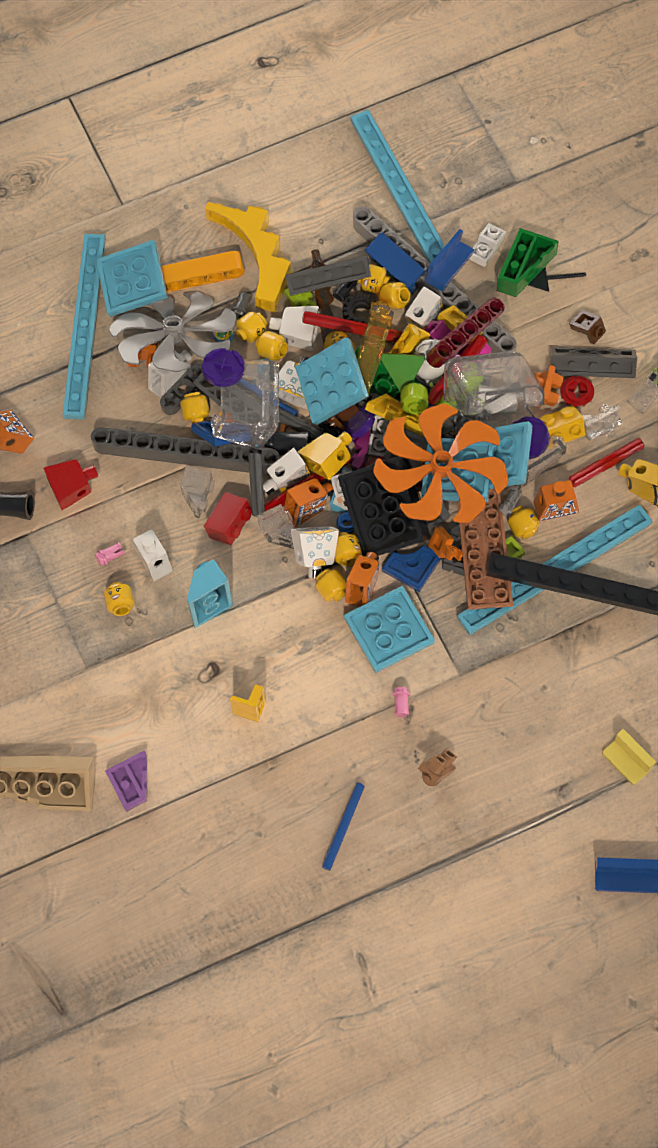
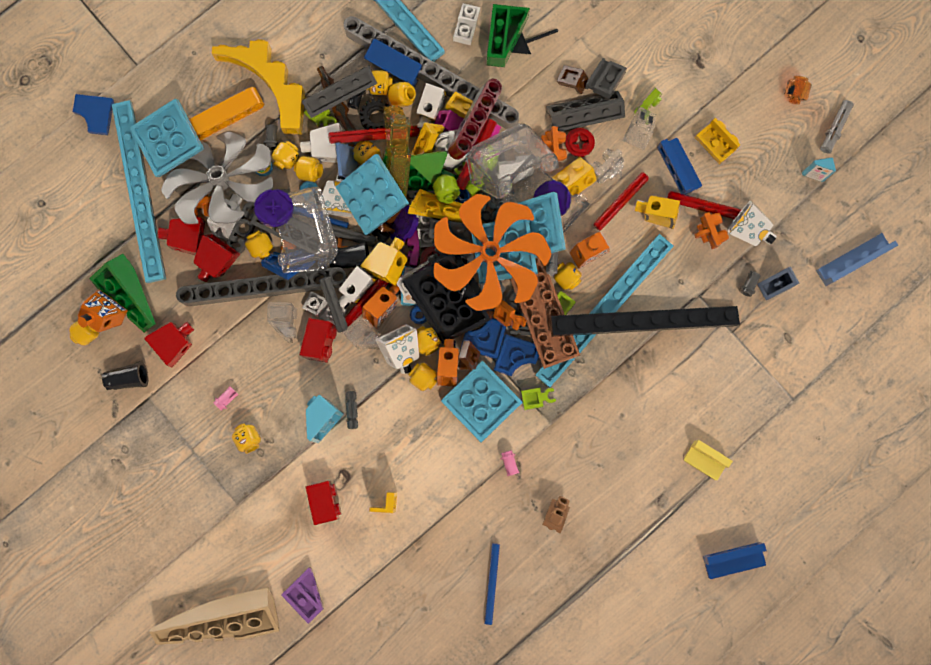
camera: 20 degrees left, 15 degrees up
(36, 409) = (120, 282): none -> green wedge
(65, 239) = (96, 112): none -> blue tile
(118, 380) = (183, 236): none -> red torso
(143, 408) = (214, 257): none -> red torso
(150, 551) = (262, 391): white torso -> none
(181, 685) = (322, 502): none -> red brick
(239, 485) = (318, 306): none -> white slope
(242, 601) = (351, 408): none -> dark grey axle
(314, 341) = (345, 160): none -> medium blue piece
(388, 575) = (468, 356): none -> reddish brown bracket
(439, 591) = (514, 354): none -> blue tile
(448, 262) = (440, 53): blue panel -> none
(448, 641) = (534, 398): none -> lime plate
(624, 333) = (606, 78): none -> dark grey plate

